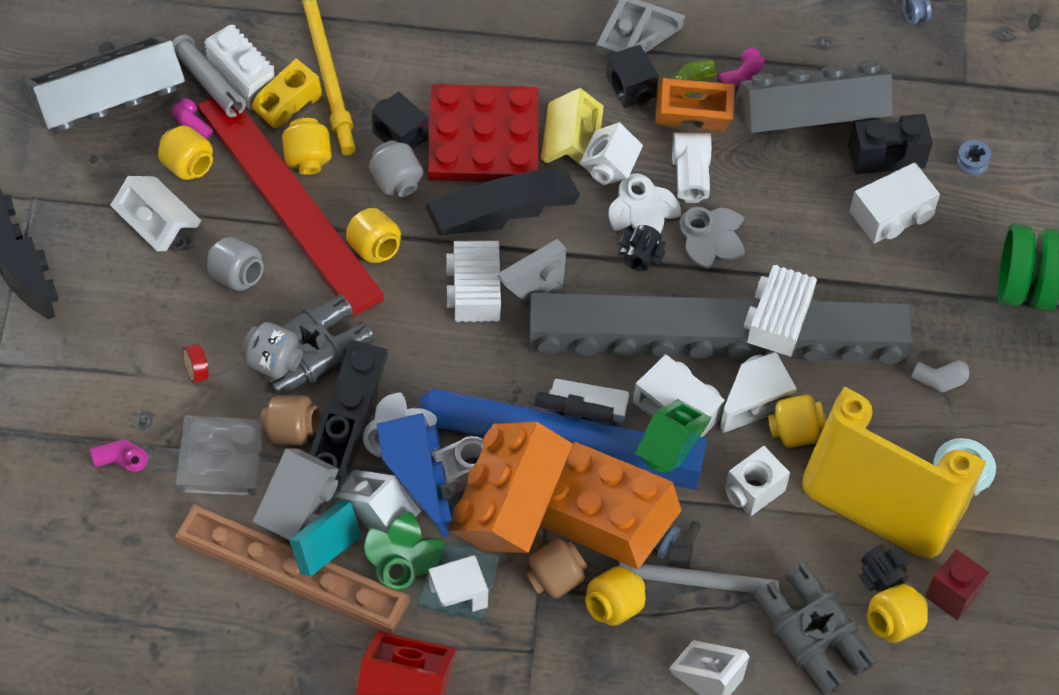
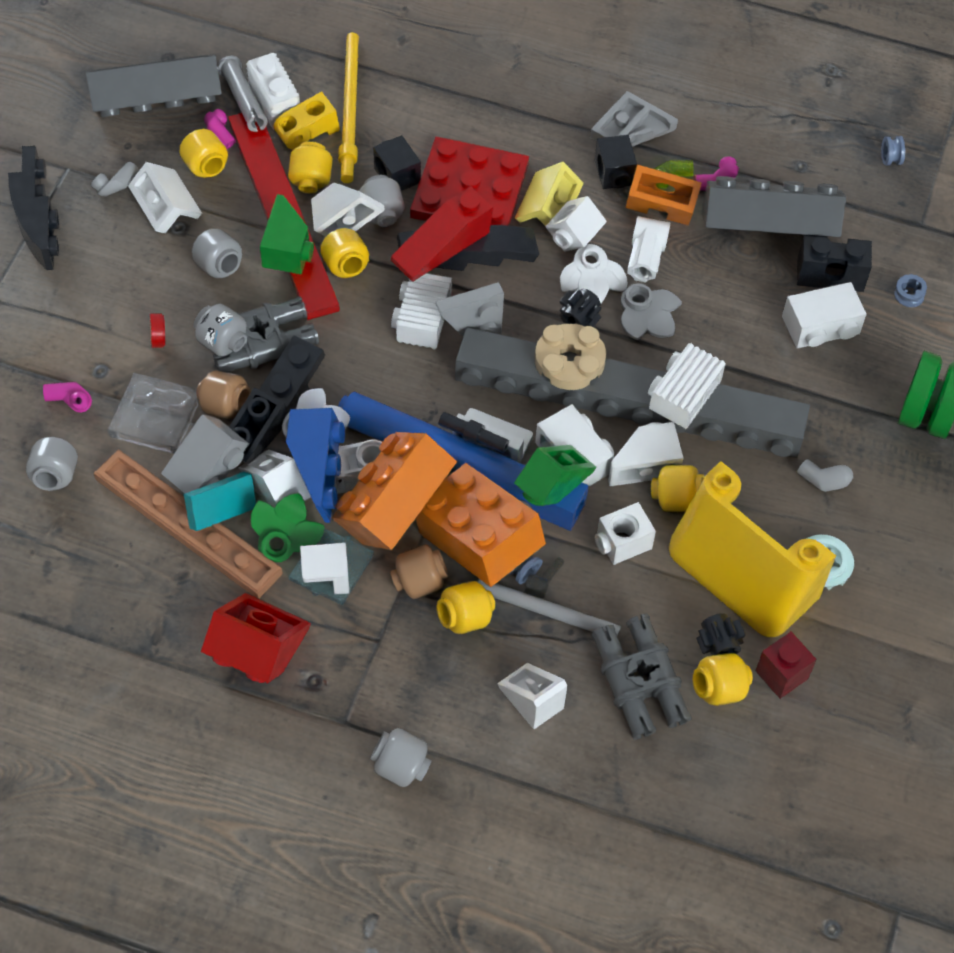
camera: 15 degrees right, 0 degrees up
(97, 205) = (117, 182): none -> light grey arm
(127, 535) = (51, 463): none -> light grey head
(308, 233) = (285, 239): none -> green slope
(358, 187) = (342, 208): none -> white slope
(480, 195) = (445, 234): none -> red slope
(650, 283) = (575, 339): none -> tan plate

